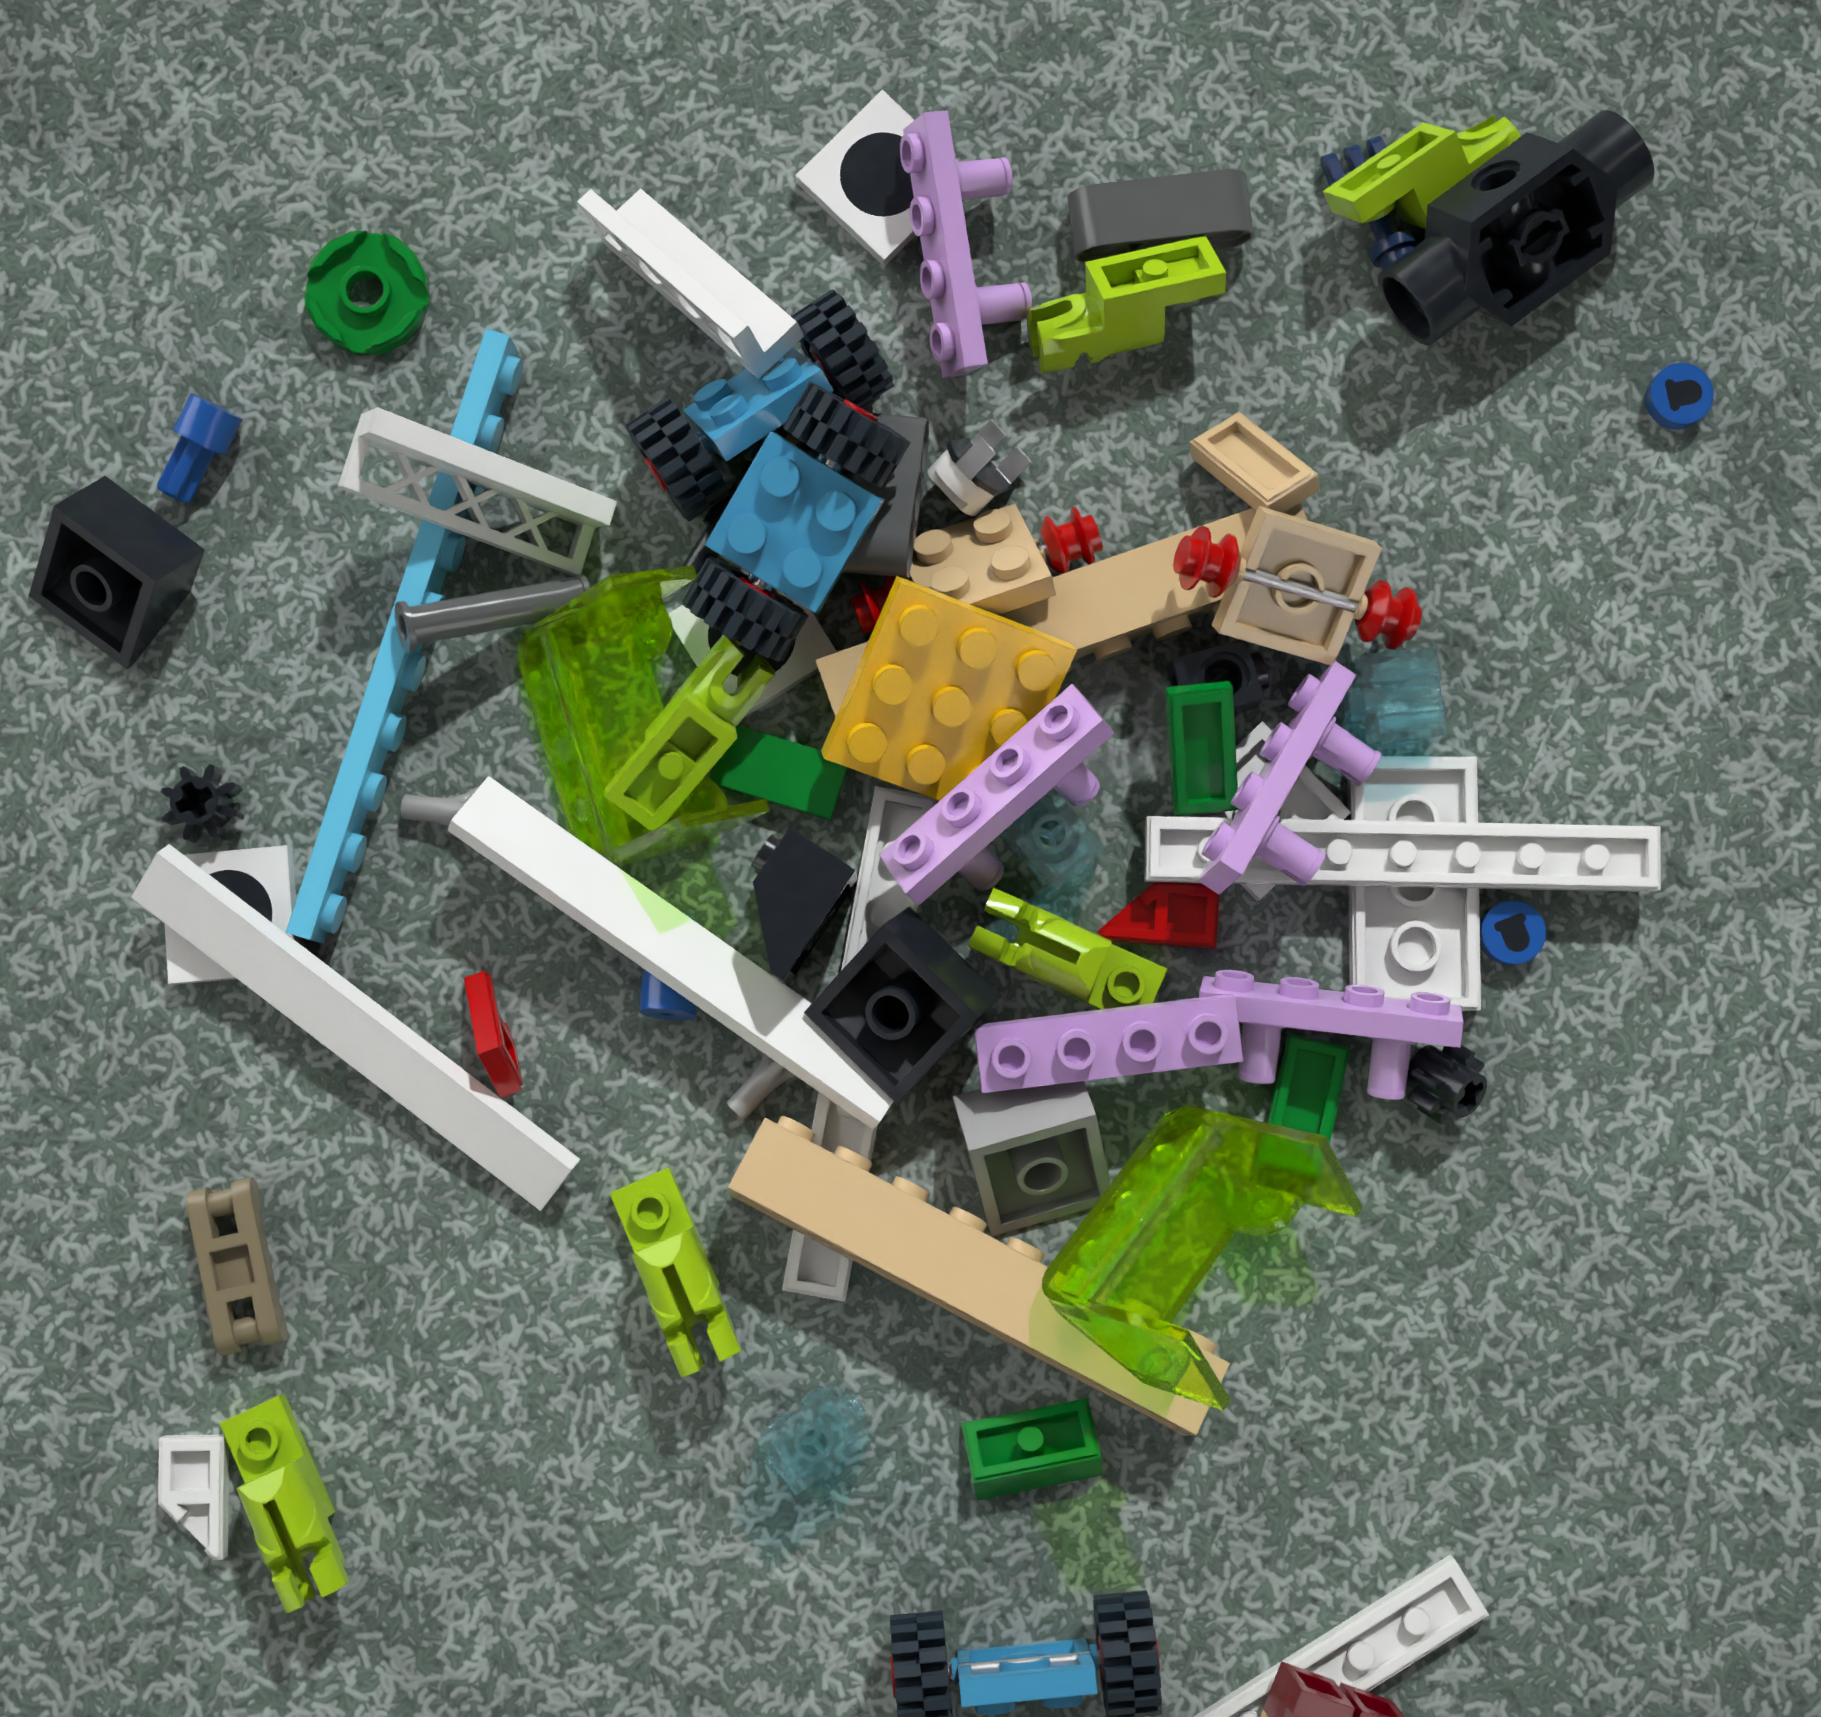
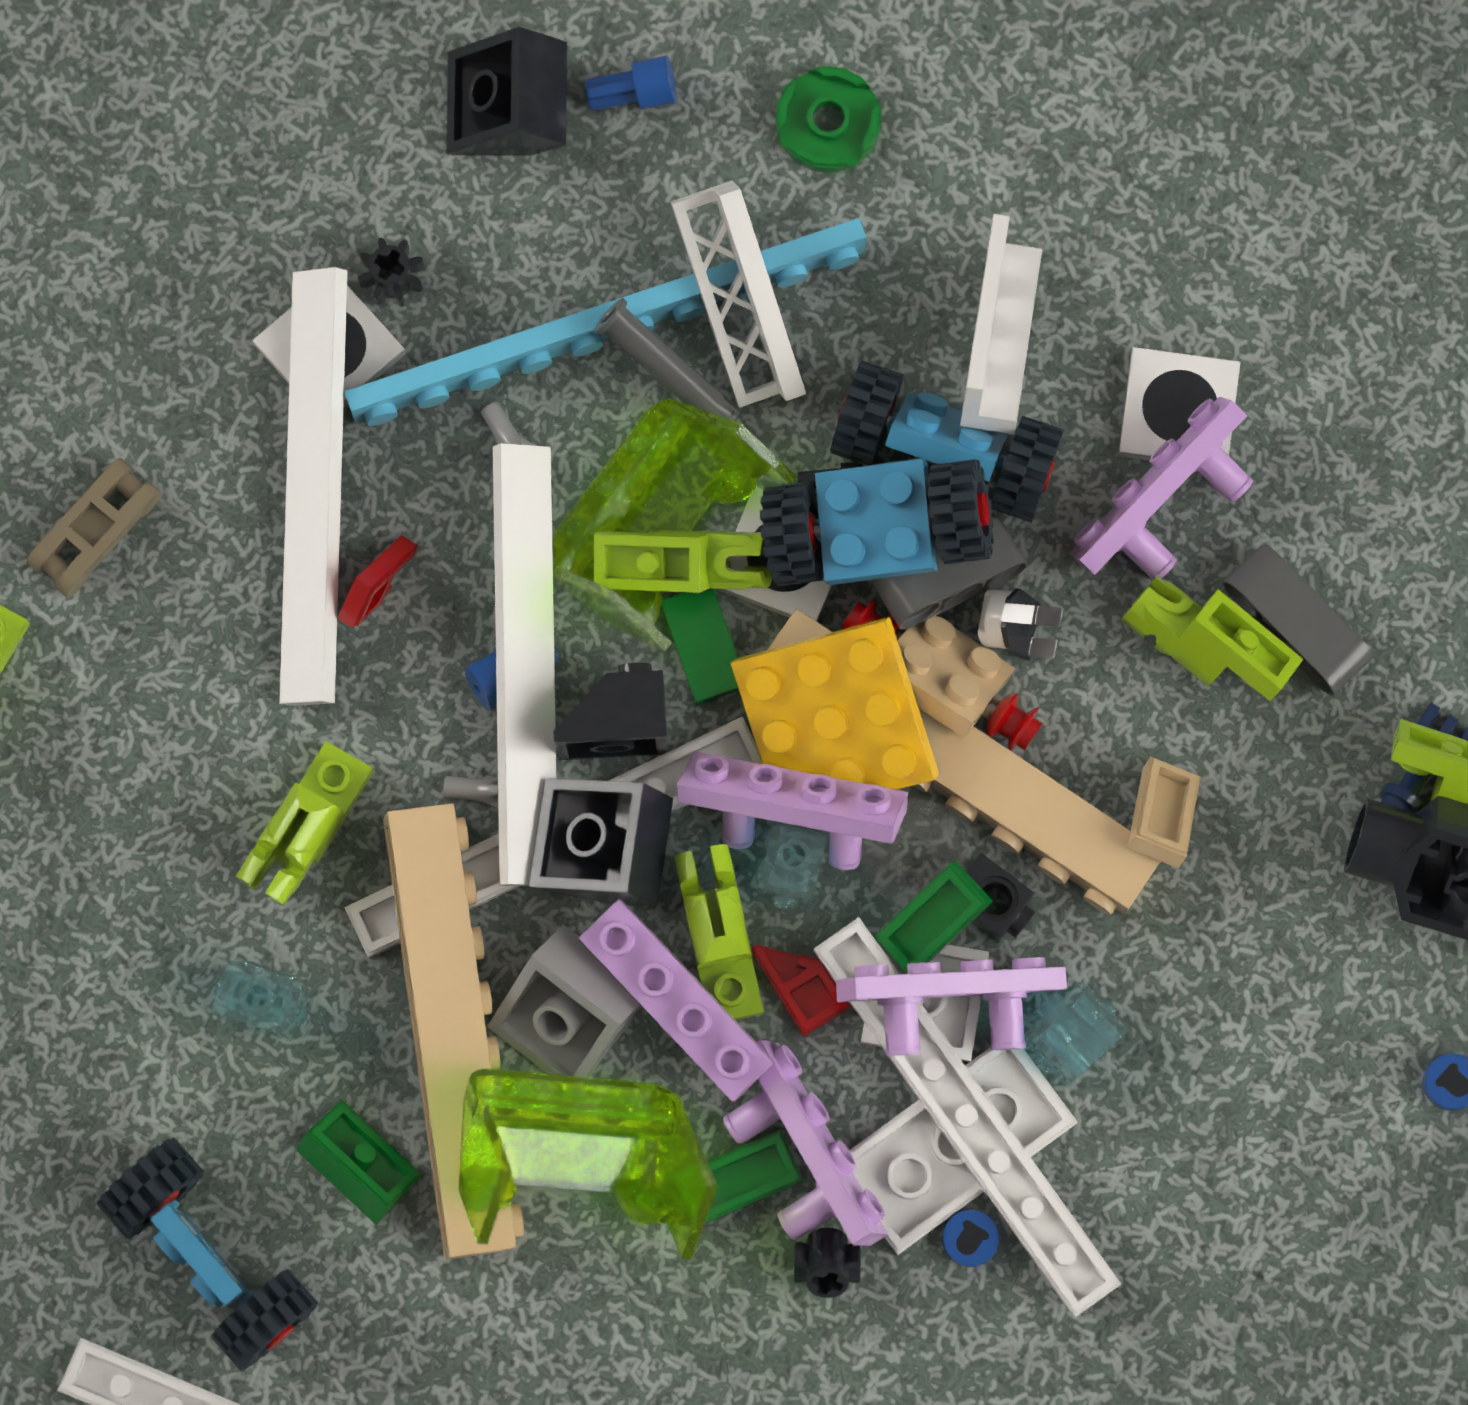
camera: 55 degrees right, 5 degrees down
(1297, 587) = (1094, 900): tan plate -> none

